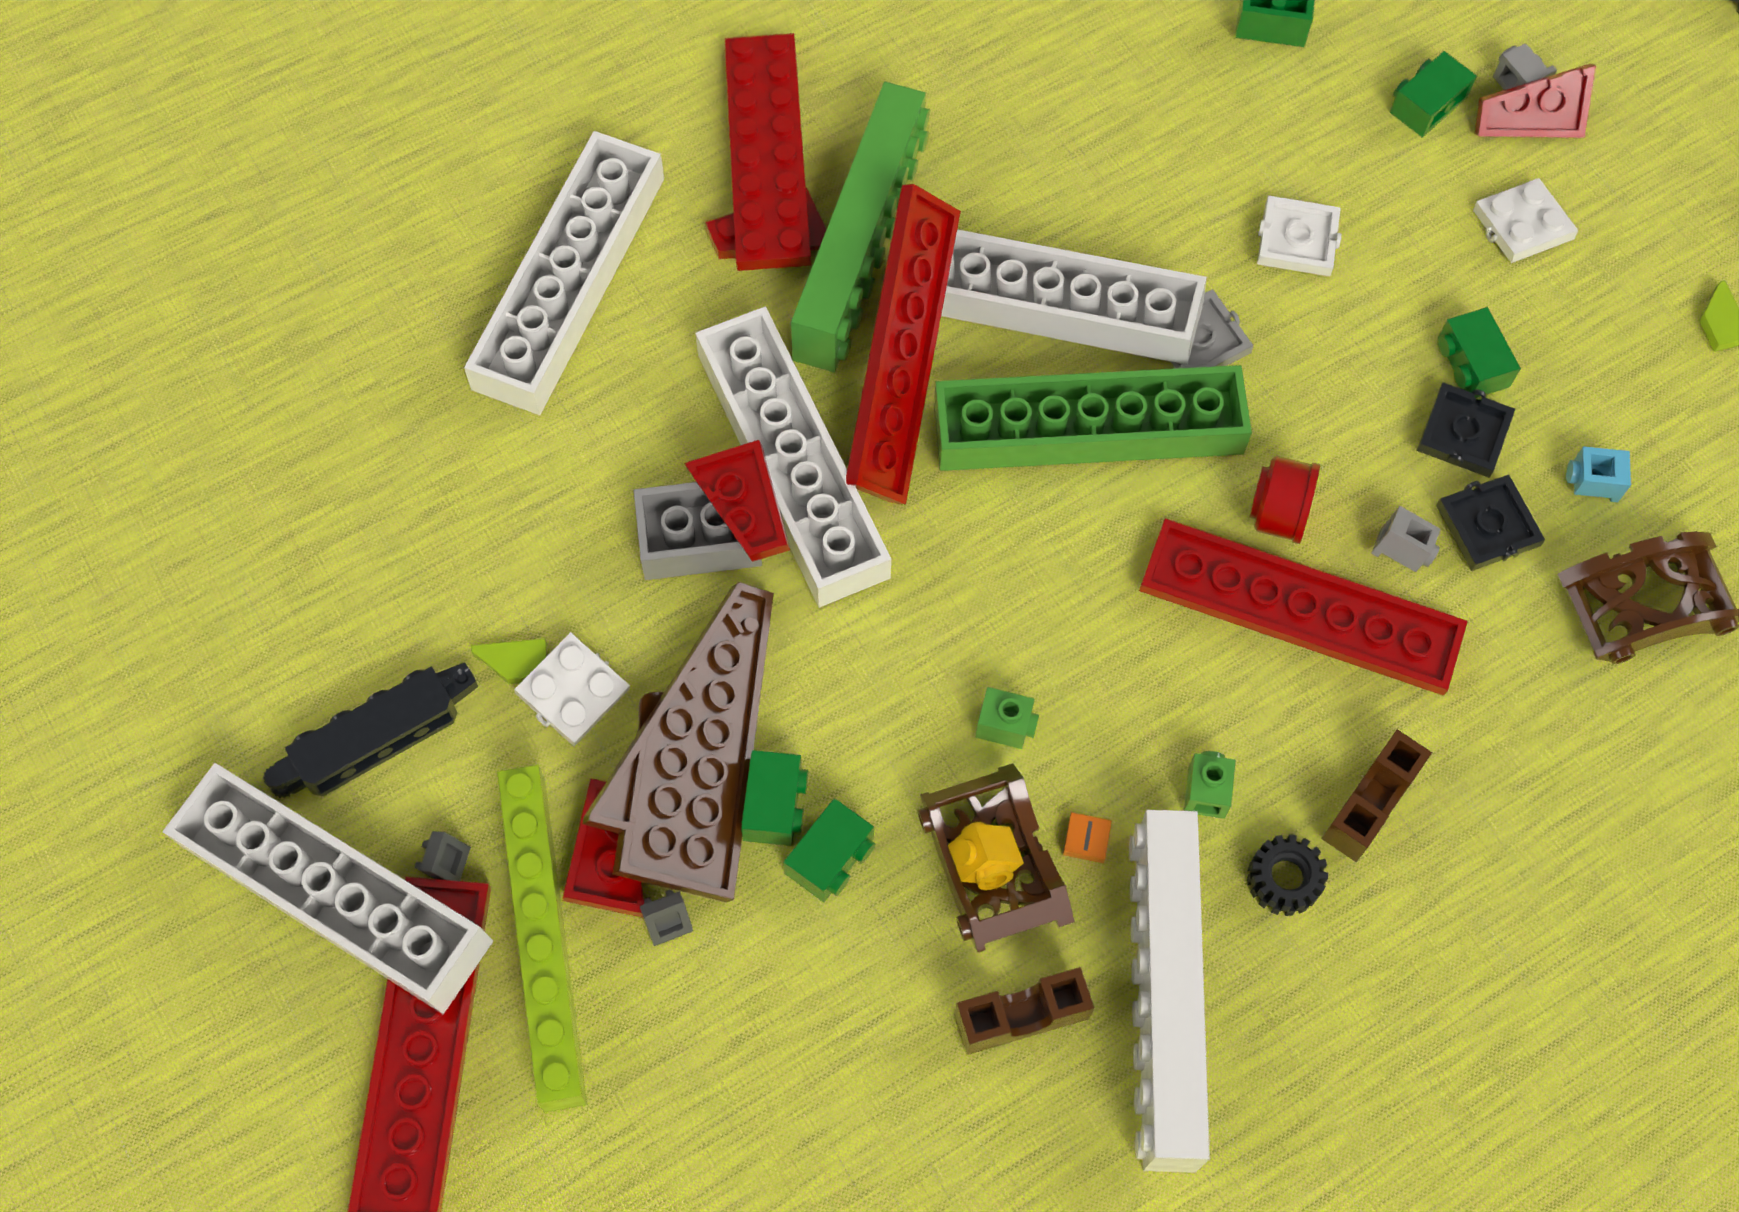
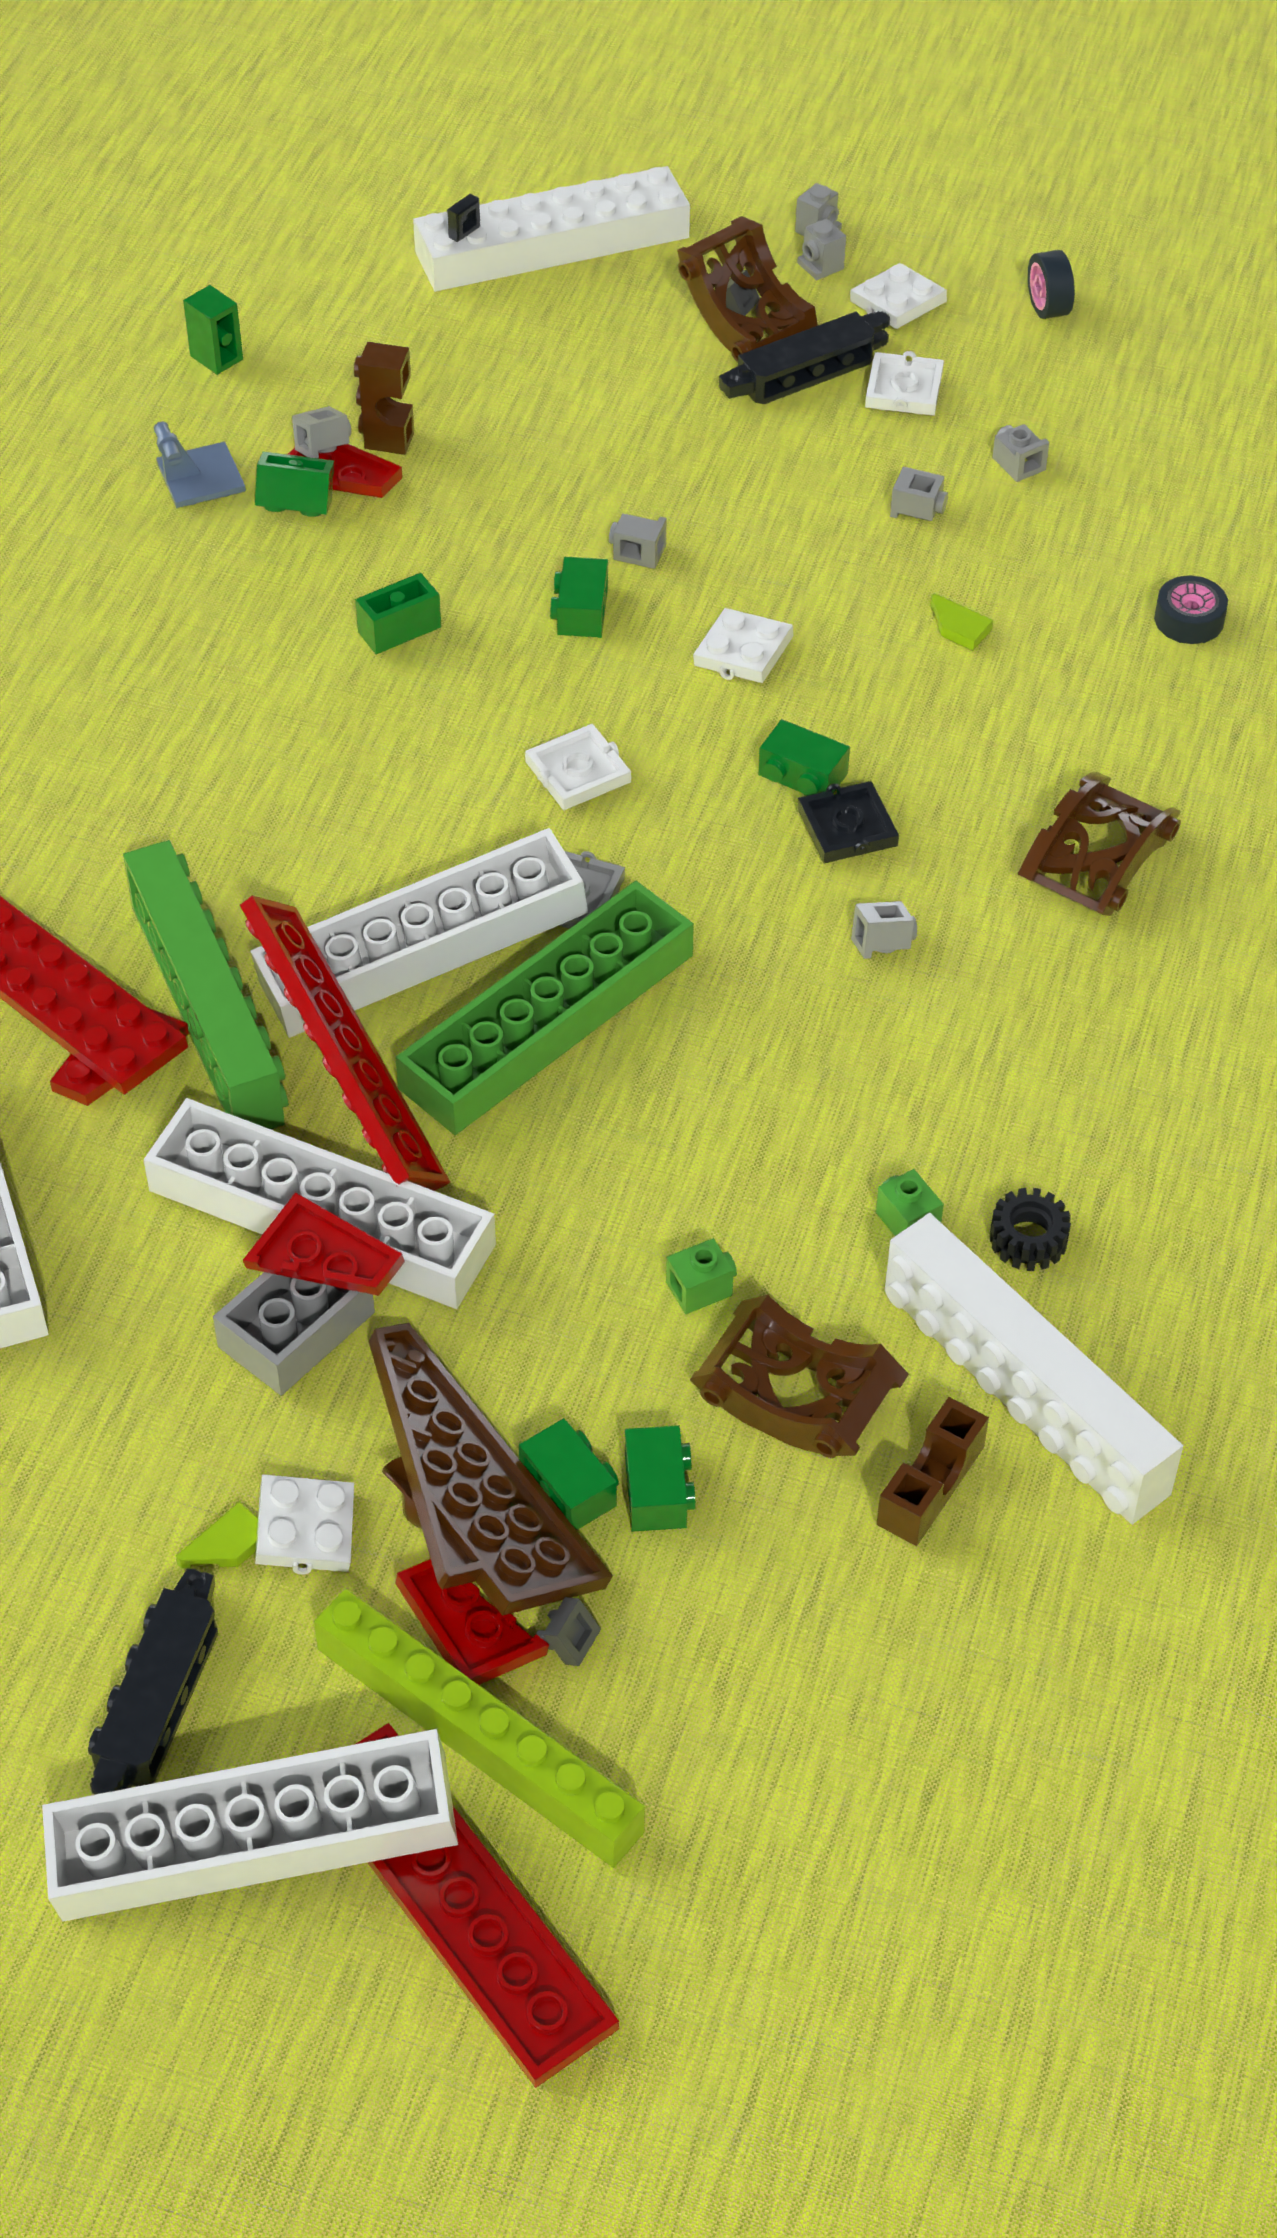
camera: 40 degrees left, 15 degrees down
(443, 857) = (321, 1729): dark grey tile -> none
(985, 855) = (792, 1375): yellow brick -> none
(1087, 837) = (851, 1317): orange tile -> none
(1284, 498) = (765, 956): red wheel -> none
(1304, 606) = (848, 1031): red plate -> none
(1376, 795) = (1043, 1136): reddish brown arch -> none
(1490, 522) = (930, 875): black plate -> none
(1539, 108) = (677, 555): wing -> none
(1600, 473) = (971, 787): medium azure brick -> none

